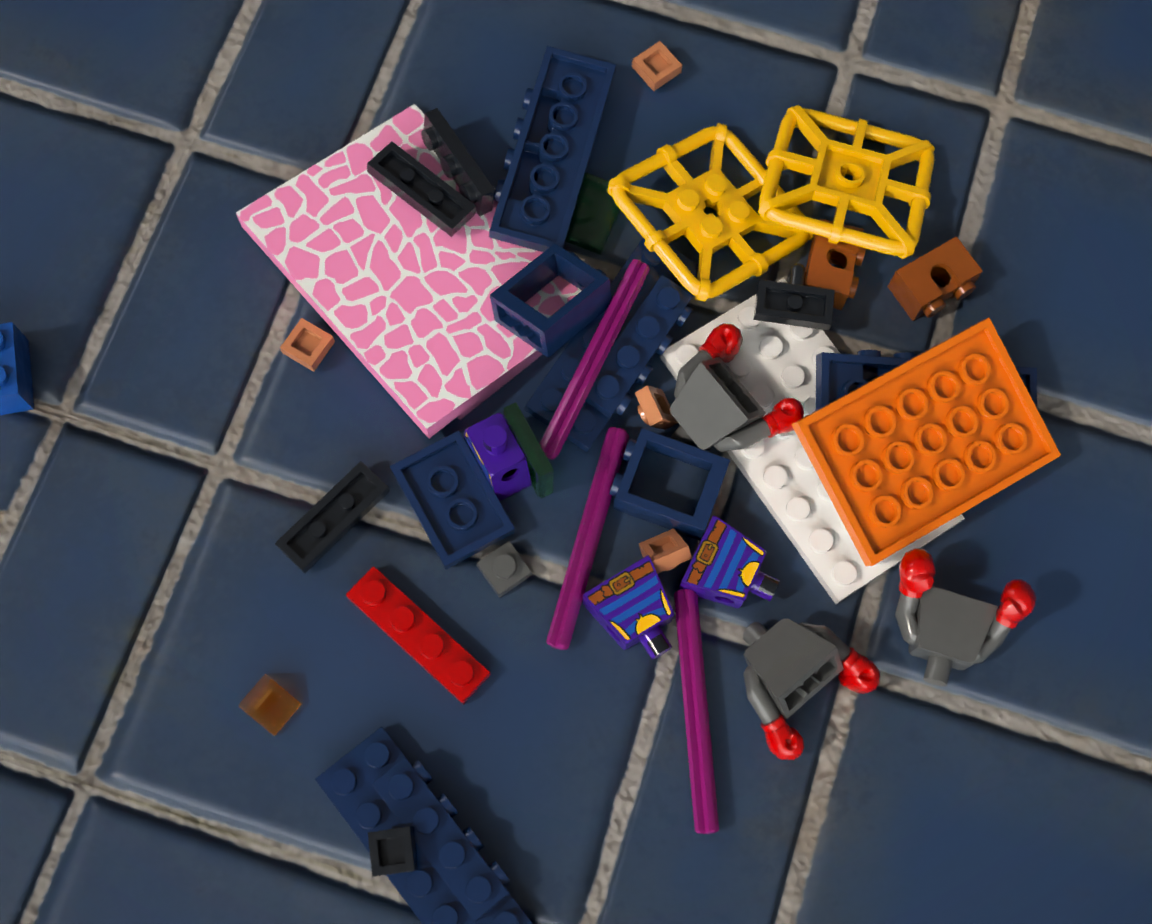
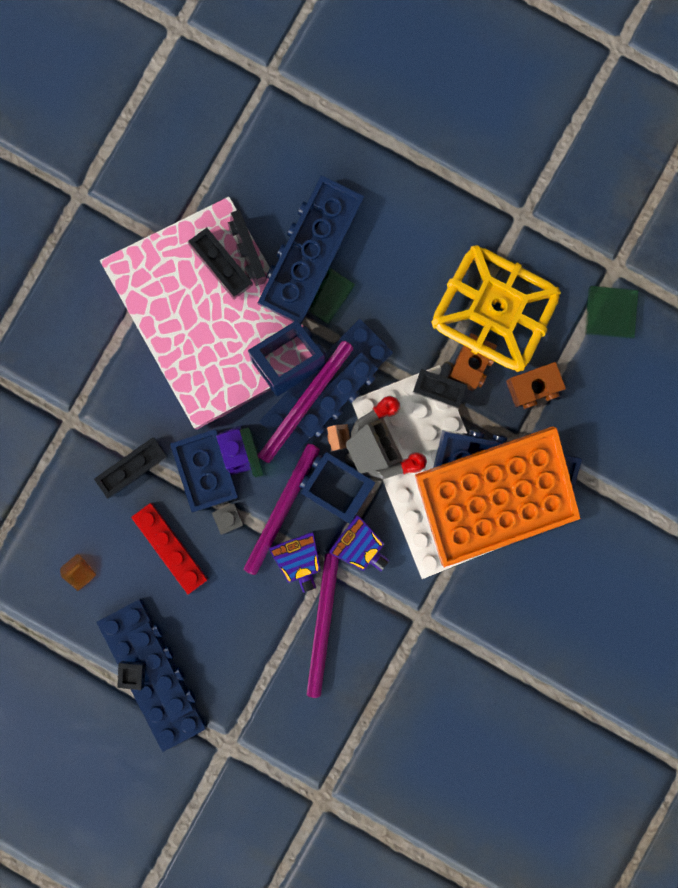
camera: 15 degrees right, 15 degrees up
(307, 344) = (133, 353): nougat plate -> none
(656, 65) = (392, 198): nougat plate -> none
(666, 550) = (325, 528): nougat plate -> none
(687, 206) = (387, 310): yellow plate -> none
(789, 668) = (381, 615): dark grey torso -> none
(950, 626) = (483, 608): dark grey torso -> none
(1015, 163) = (611, 312): none -> clear green tile

